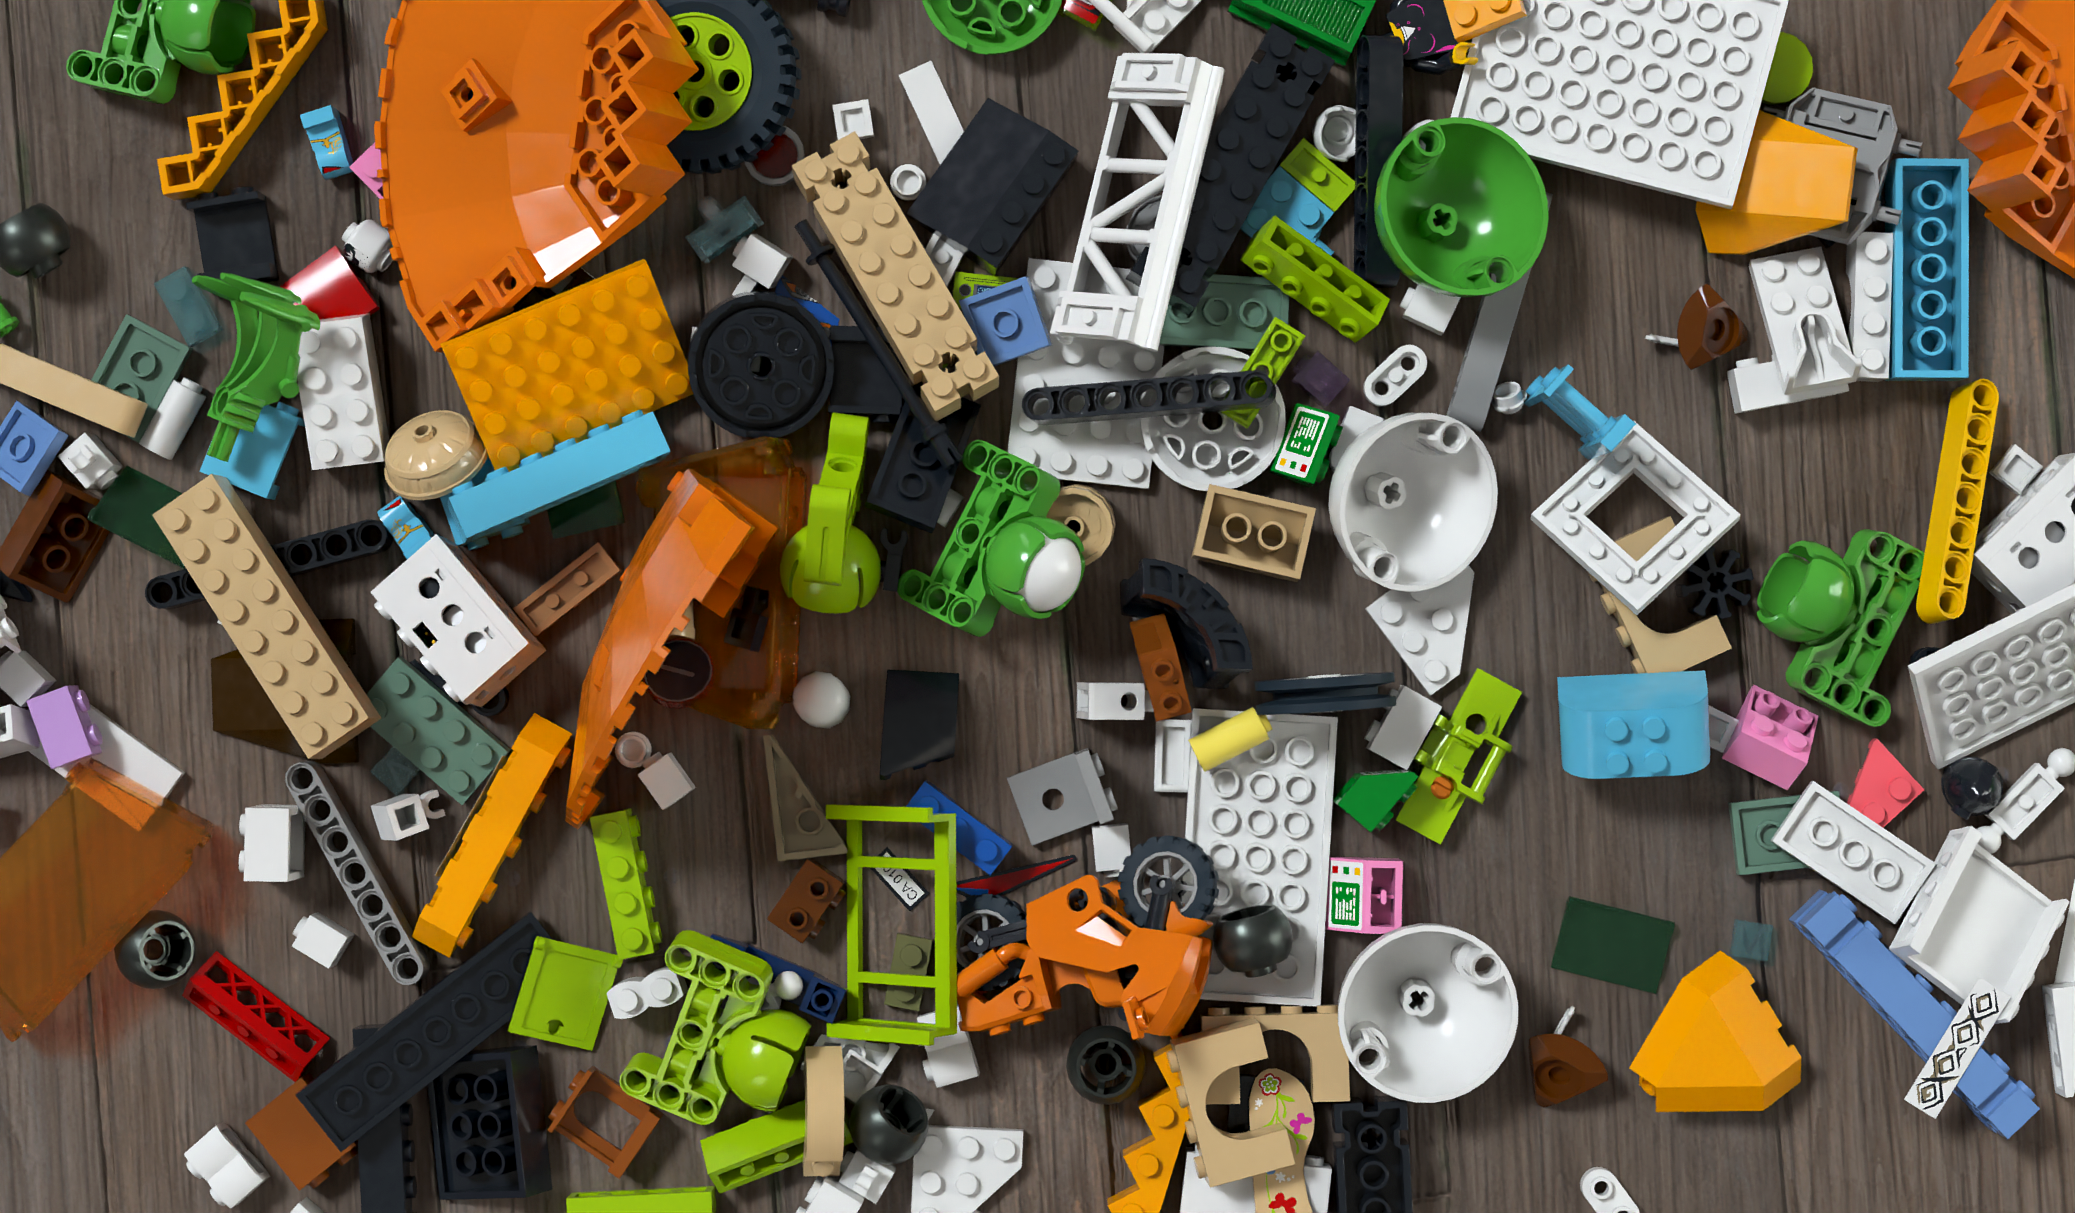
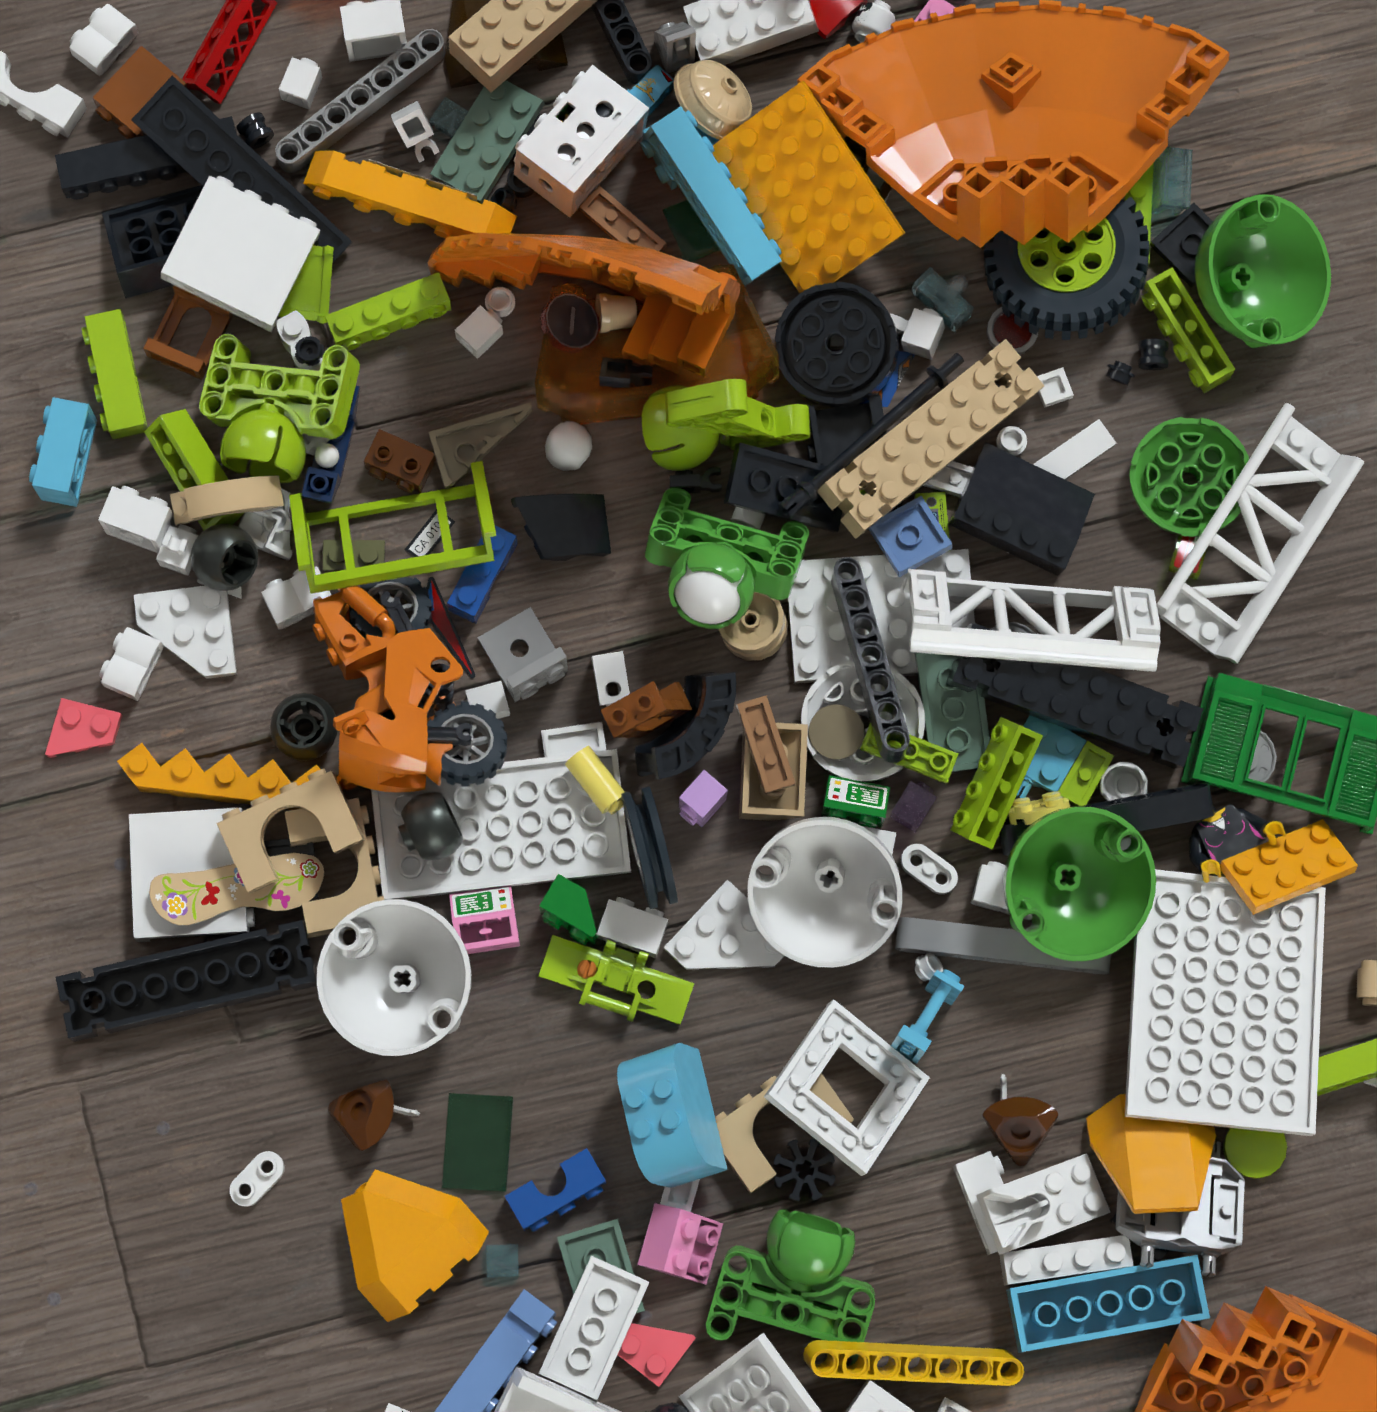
camera: 75 degrees right, 10 degrees down
(356, 487) = (675, 45): none -> light grey slope
(372, 1003) = (255, 130): none -> black wheel
(510, 724) = (505, 199): none -> black plate
(525, 1047) = (240, 252): none -> white panel
(653, 991) = (309, 343): none -> black plate
(850, 39) = (1120, 372): none -> black plate
(1221, 452) = (836, 731): none -> dark tan sticker
(1228, 537) = (765, 745): none -> medium nougat plate
(1273, 622) = (702, 799): none -> lavender brick
(1354, 235) = (1033, 810): none -> light yellow plate
(1700, 894) = (533, 1207): none -> blue arch

